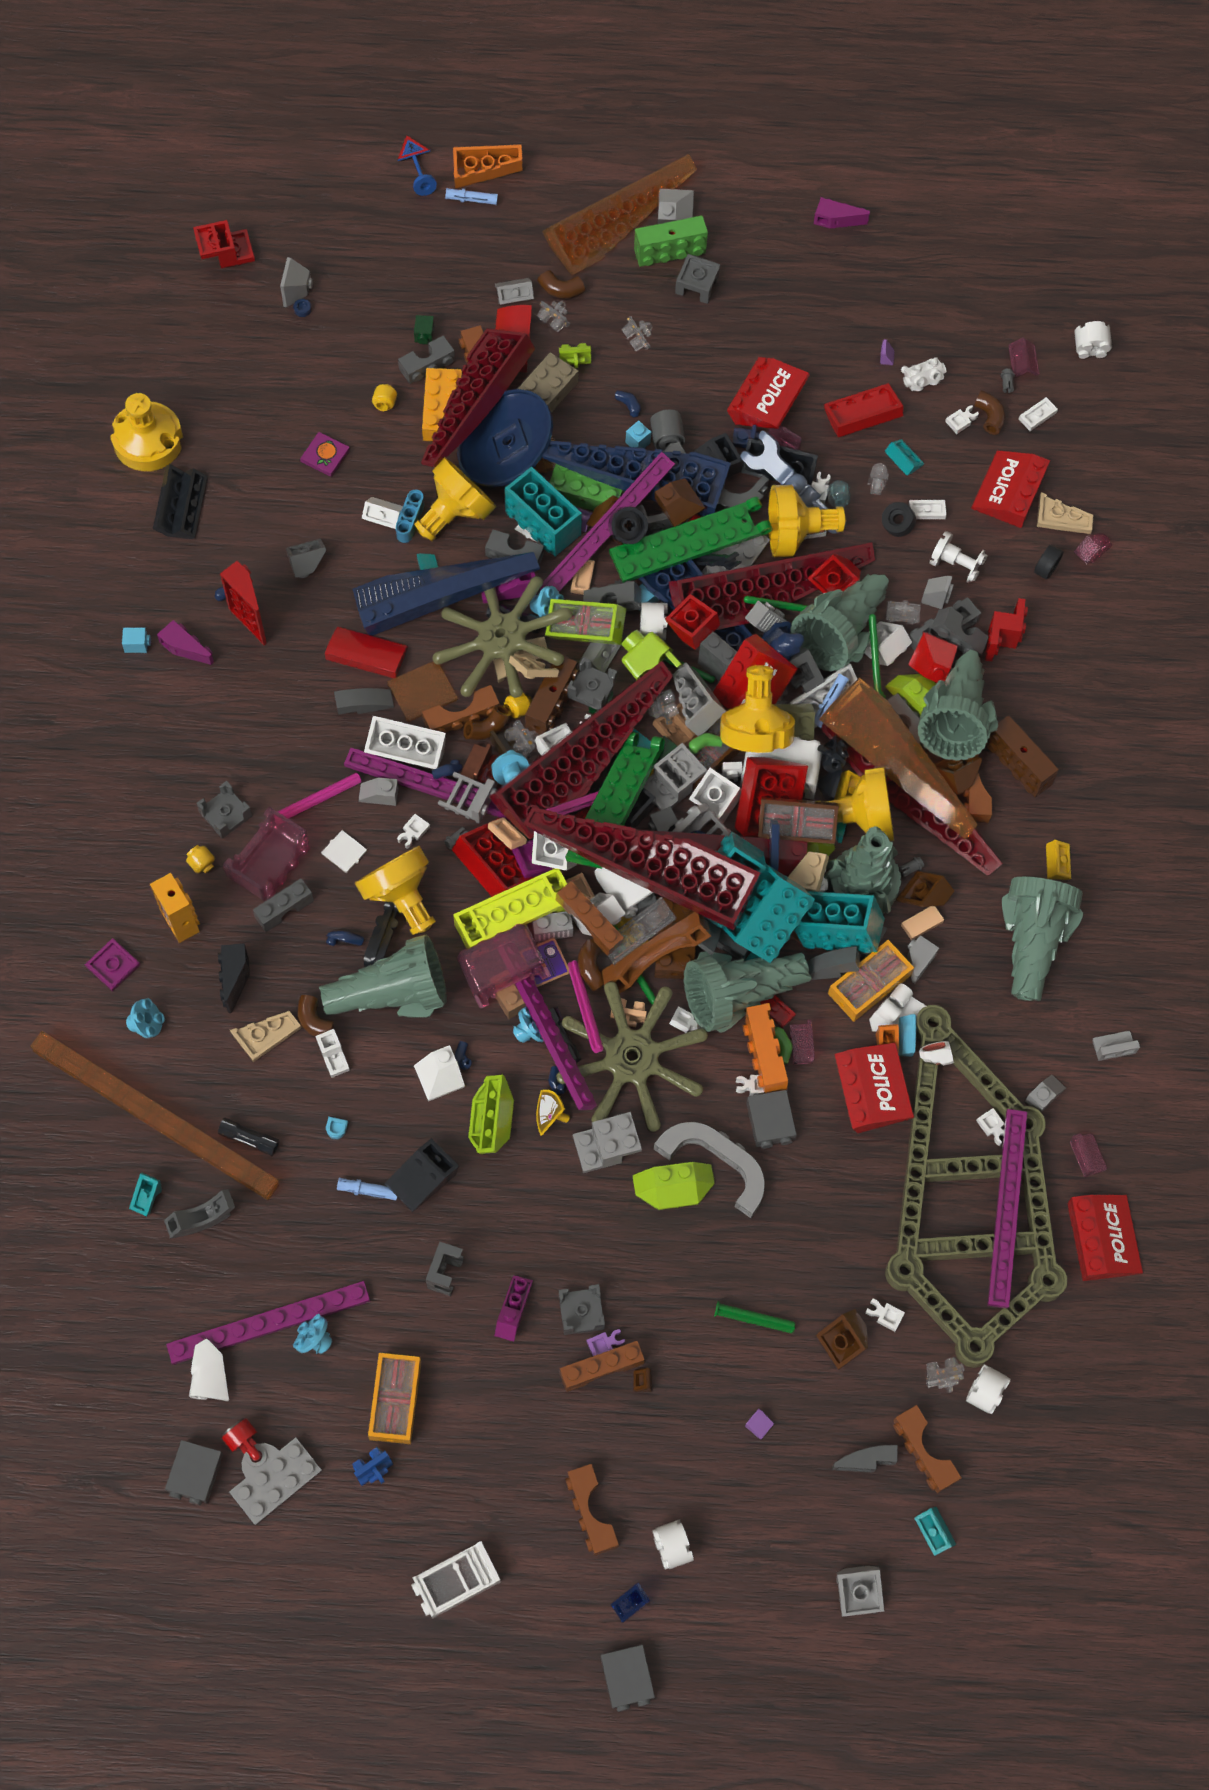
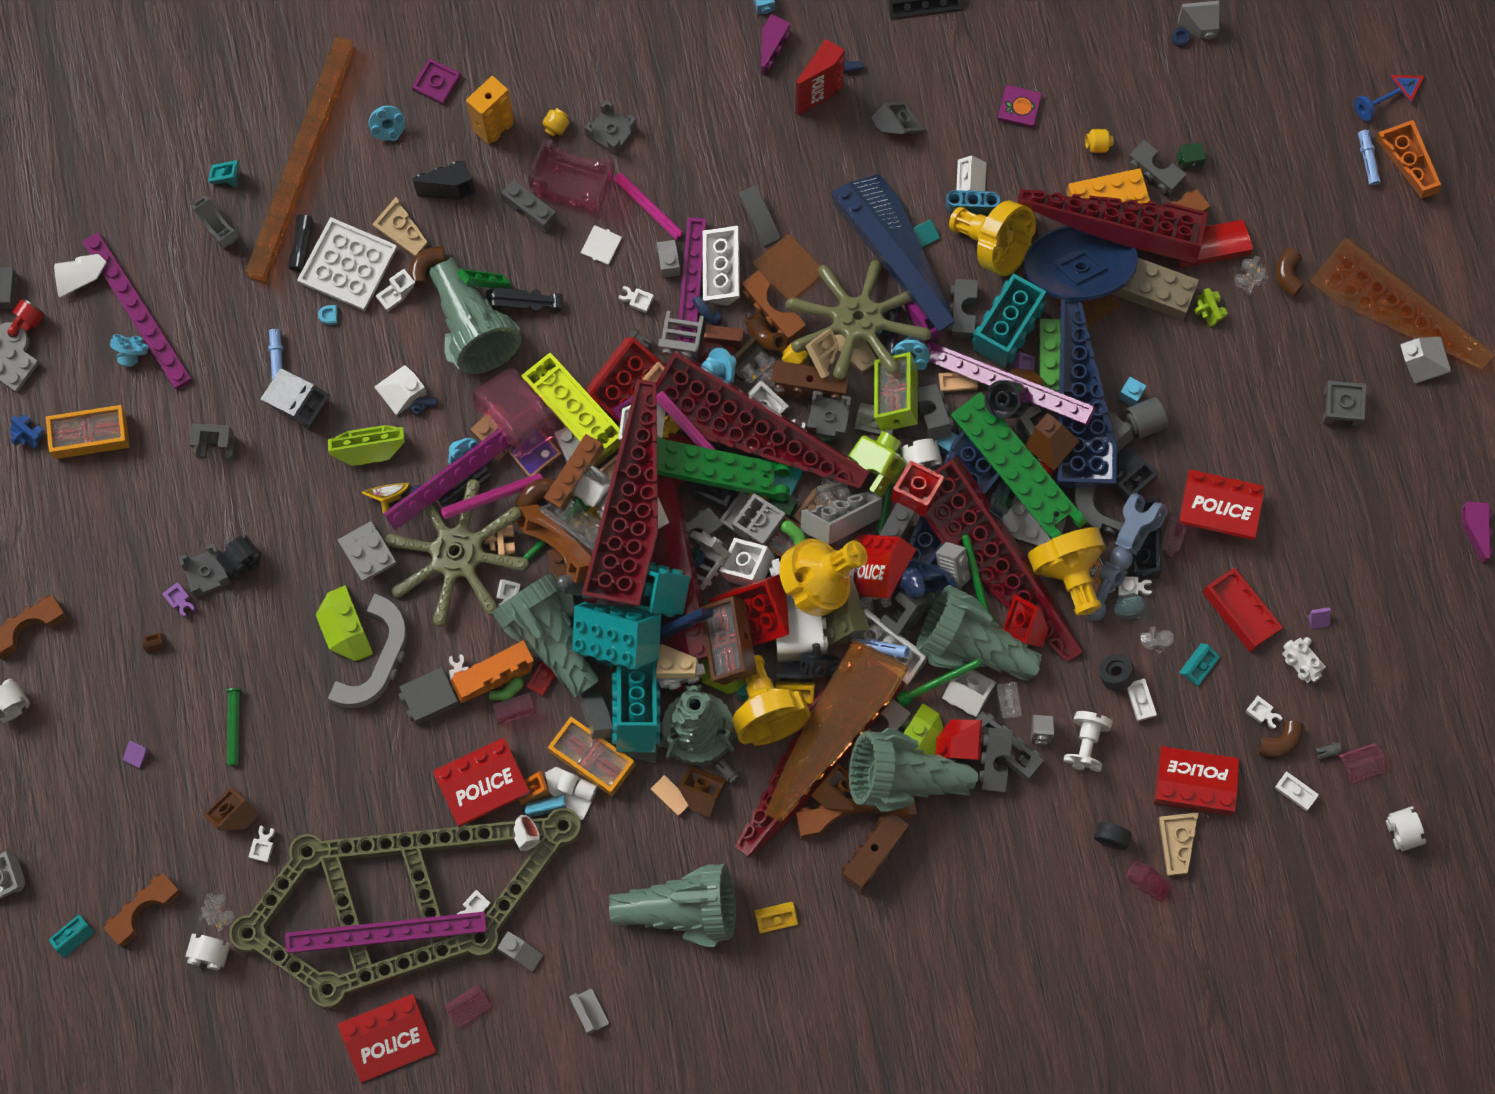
camera: 80 degrees right, 5 degrees up
(287, 1095) = (347, 264): none -> white plate
(344, 936) = (512, 268): dark blue arm -> none
(353, 960) = (483, 279): none -> green tile
(365, 652) = (814, 205): red slope -> none
(398, 884) = (569, 294): yellow piece -> none
(513, 1308) = (194, 511): magenta slope -> none
(514, 291) = (1269, 229): light grey panel -> none
(580, 1268) = (239, 557): none -> black brick
(592, 1368) = (156, 601): dark orange arch -> none
(630, 400) = (1175, 374): dark blue arm -> none
(639, 341) = (1259, 363): clear hips -> none
(670, 241) = (1377, 364): bright green brick -> none
(705, 948) = (564, 582): none -> dark grey hinge
(741, 436) = (1169, 497): dark blue bracket -> none
(866, 1459) = (121, 858): dark grey slope -> none
(920, 956) = (631, 799): light grey slope -> none
(1006, 629) = (1016, 807): red bracket -> none

